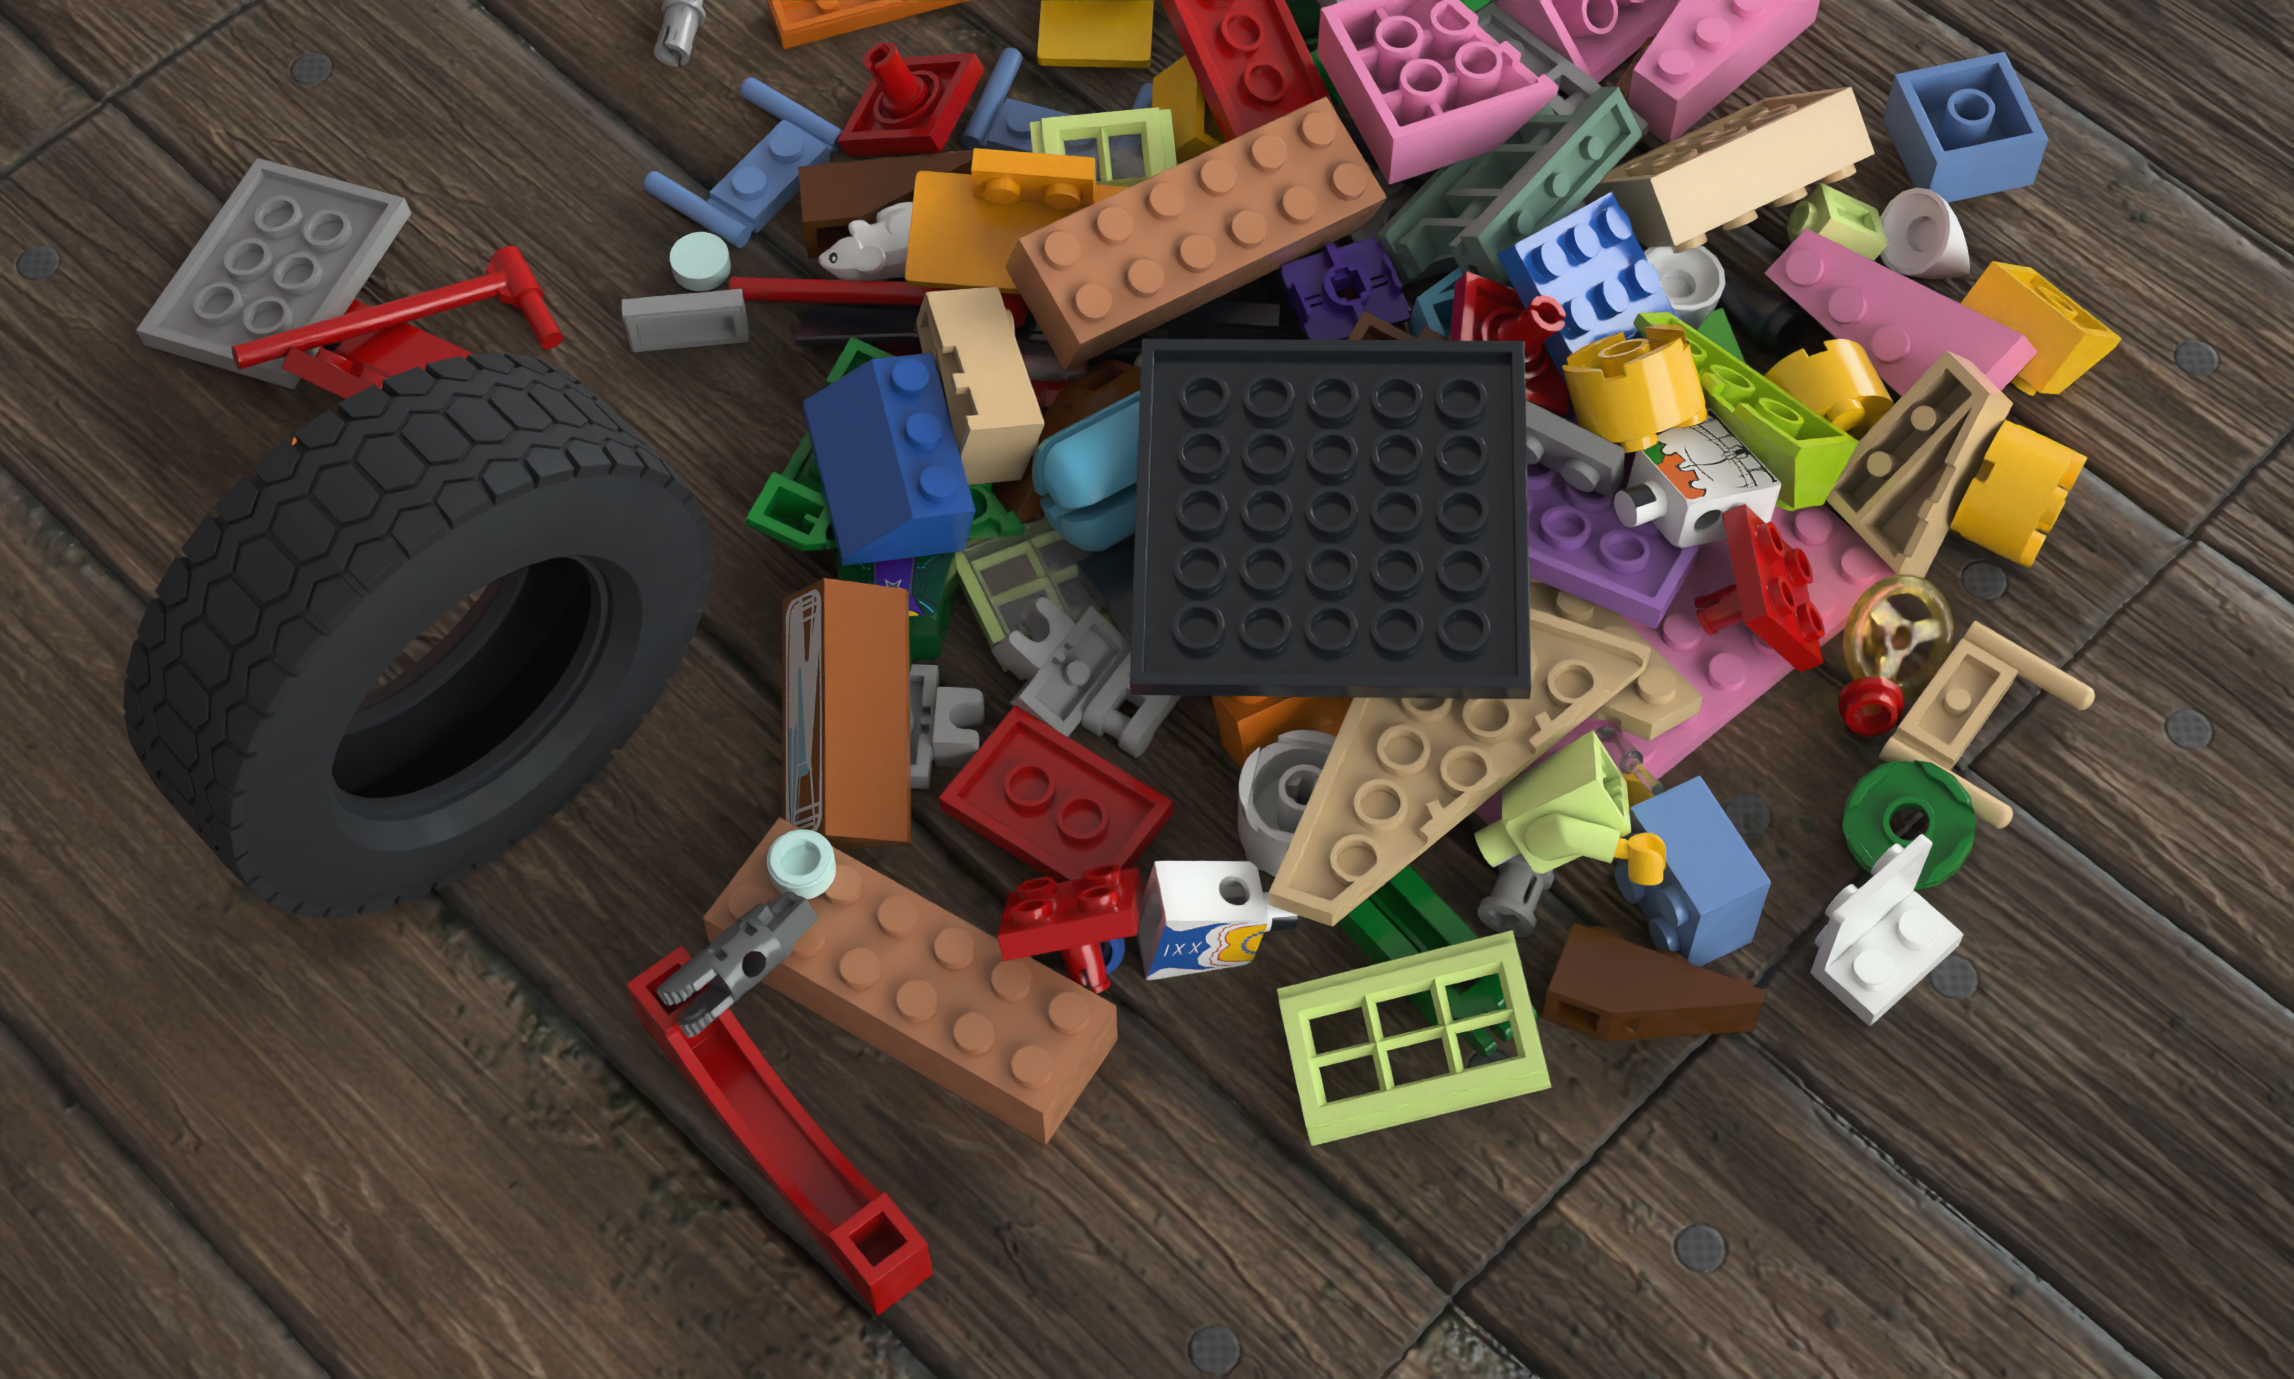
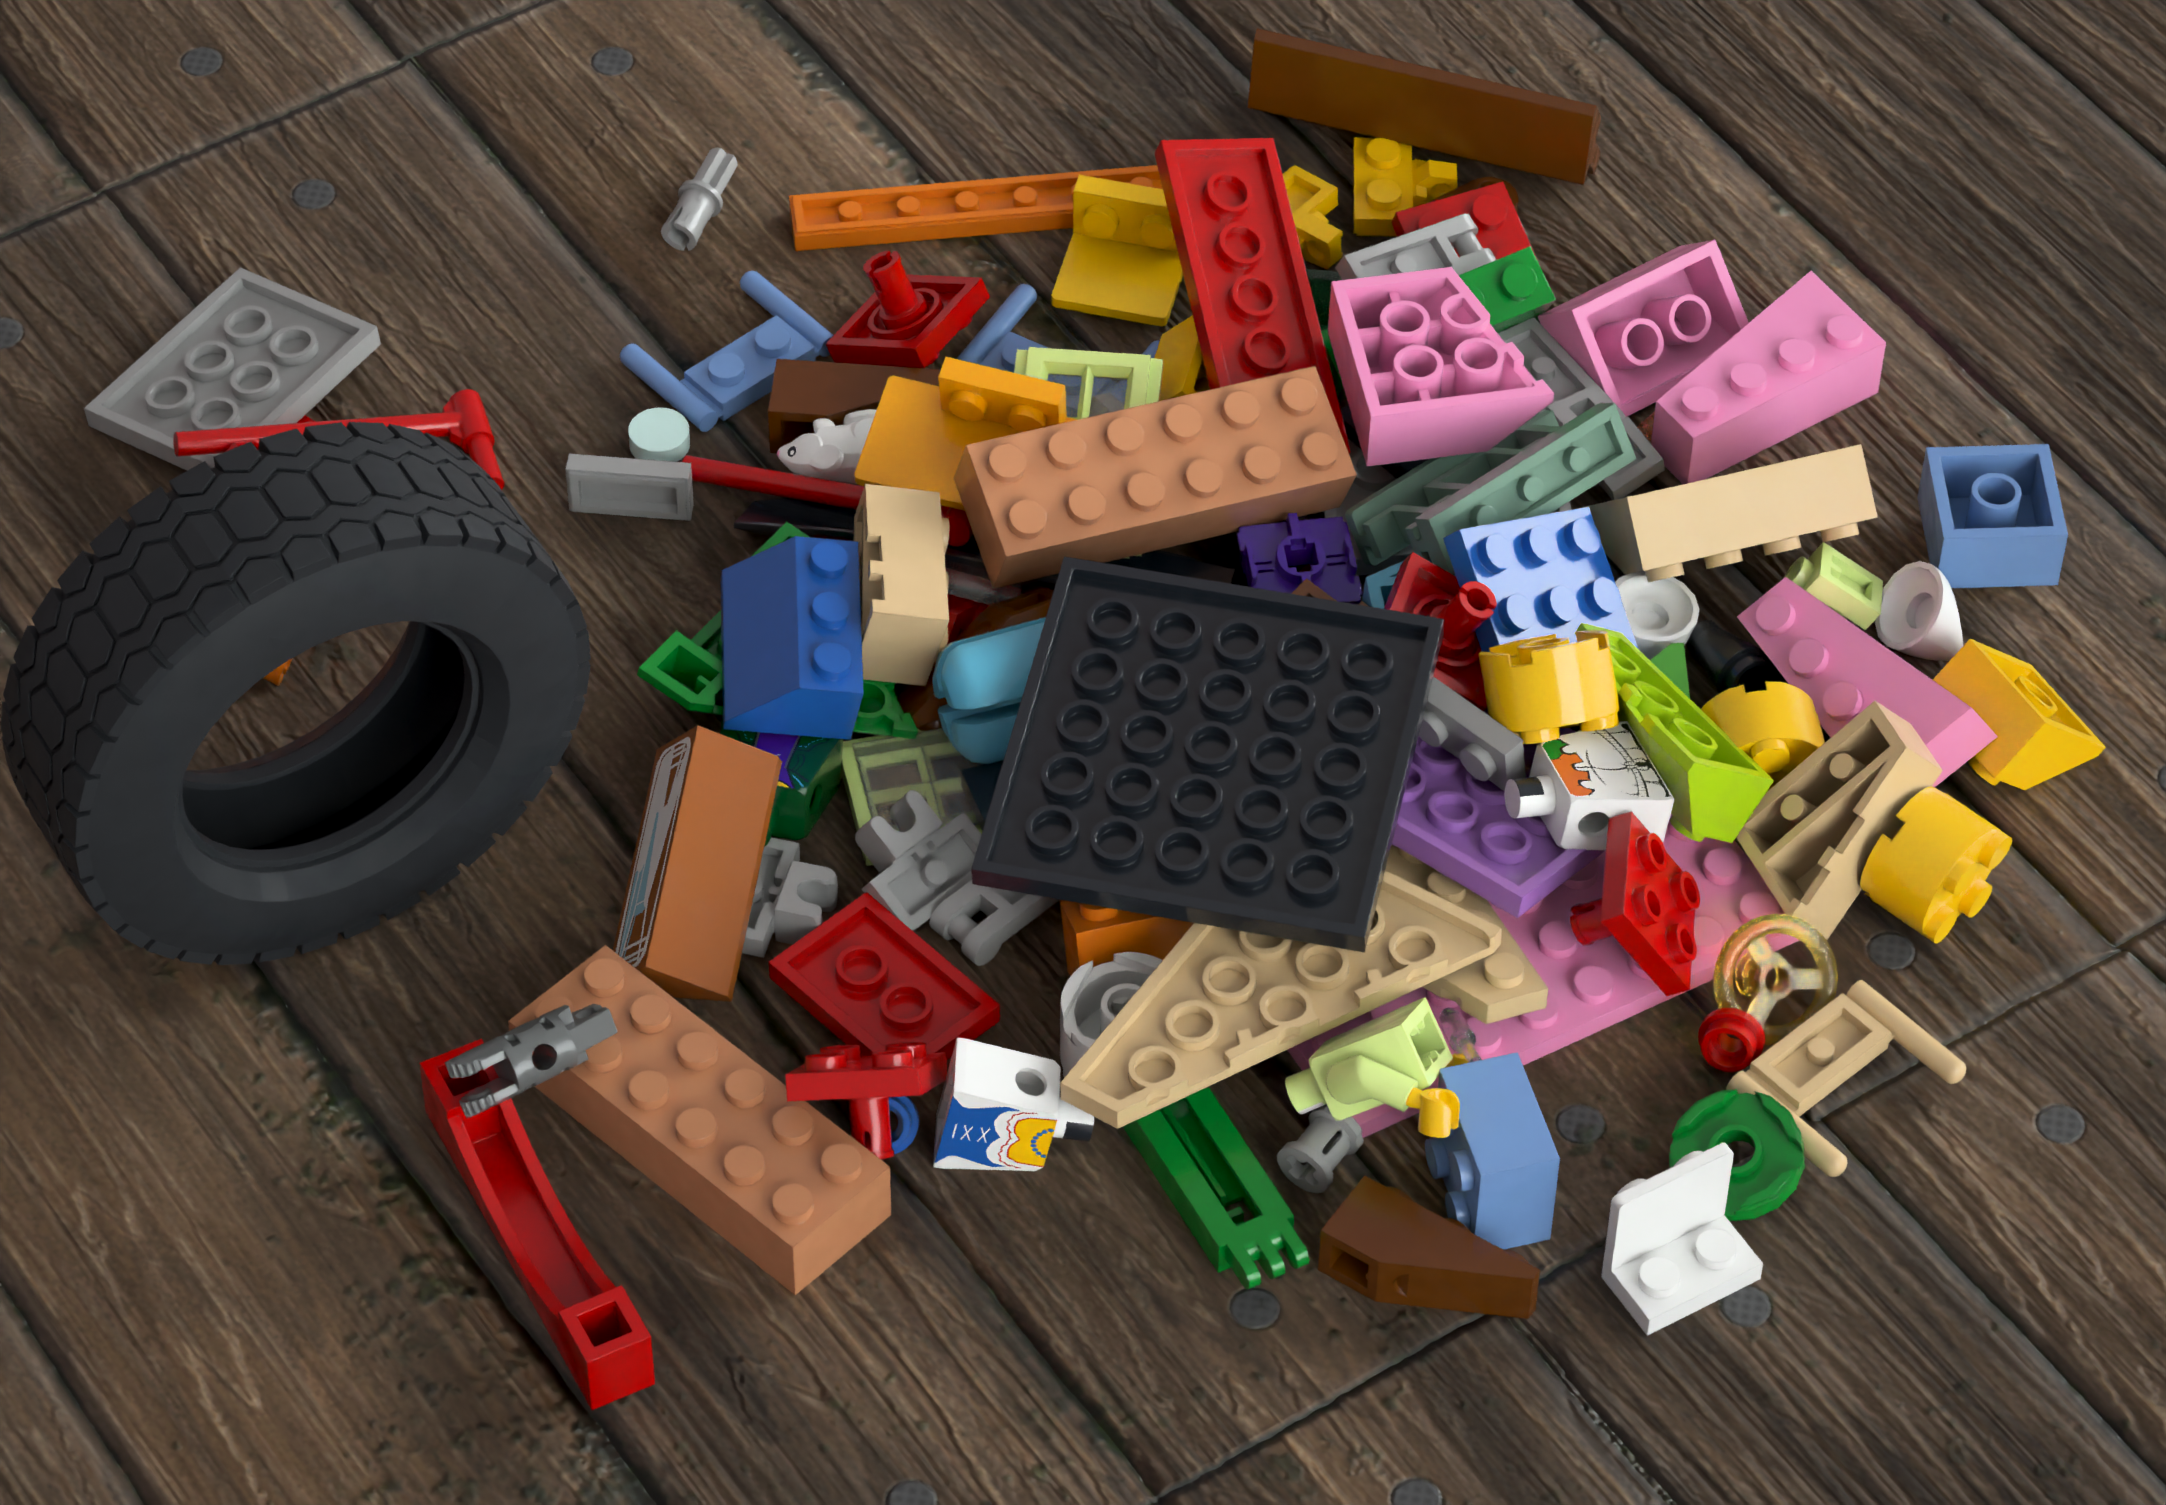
camera: 10 degrees right, 10 degrees down
(801, 863) = (615, 982): light aqua tile -> none
(1429, 1096) = (1188, 1309): yellowish green piece -> none

